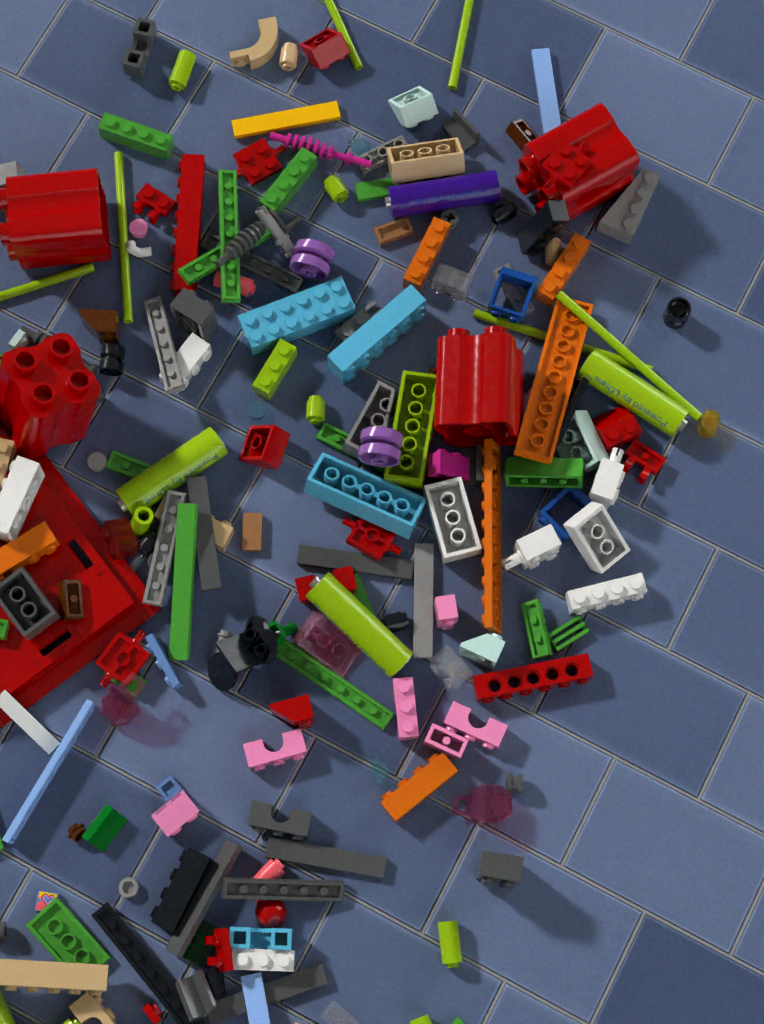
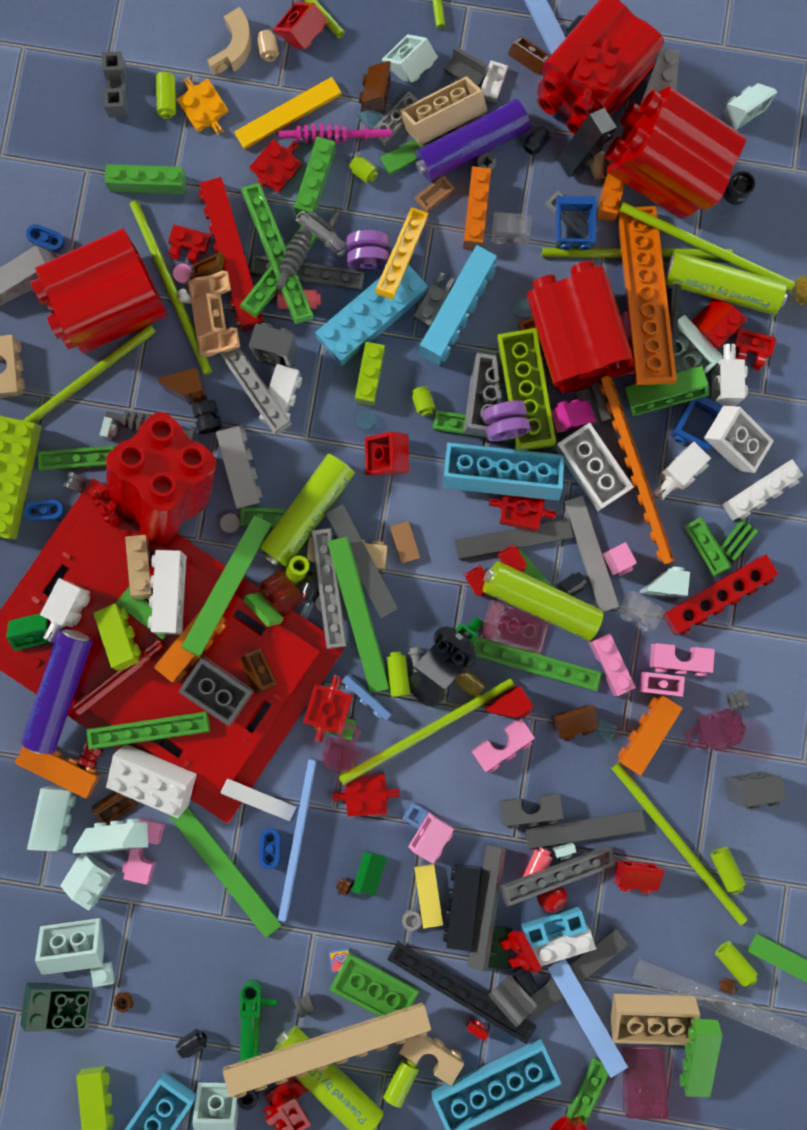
camera: 20 degrees left, 10 degrees up
(18, 771) = (269, 848): none -> blue plate
(29, 158) = (46, 238): none -> blue plate
(70, 512) = (226, 587): none -> bright green tile
(96, 546) = (263, 609): none -> bright green tile
(123, 411) = (238, 466): none -> light grey wedge
(129, 753) = (366, 795): none -> red plate
(147, 271) = (209, 315): none -> light nougat bracket
(153, 869) = (428, 896): none -> light yellow tile
(161, 229) = (208, 266): none -> reddish brown tile
(200, 650) = (398, 674): none -> lime brick
(201, 713) = (426, 731): none -> lime piece
(212, 89) = (202, 105): none -> light orange plate
(265, 681) = (469, 683): none -> clear yellow brick
(298, 870) = (564, 851): none -> light aqua plate
(341, 271) = (401, 253): none -> yellow tile
(351, 750) = (575, 721): none -> reddish brown slope
(359, 917) = (638, 875): none -> red slope
(373, 122) = (376, 88): none -> reddish brown slope
(412, 903) = (679, 843): none -> lime piece
(483, 150) = (494, 81): none -> white tile
(618, 259) = (674, 152): none -> red brick
(710, 242) = (749, 104): none -> light aqua slope

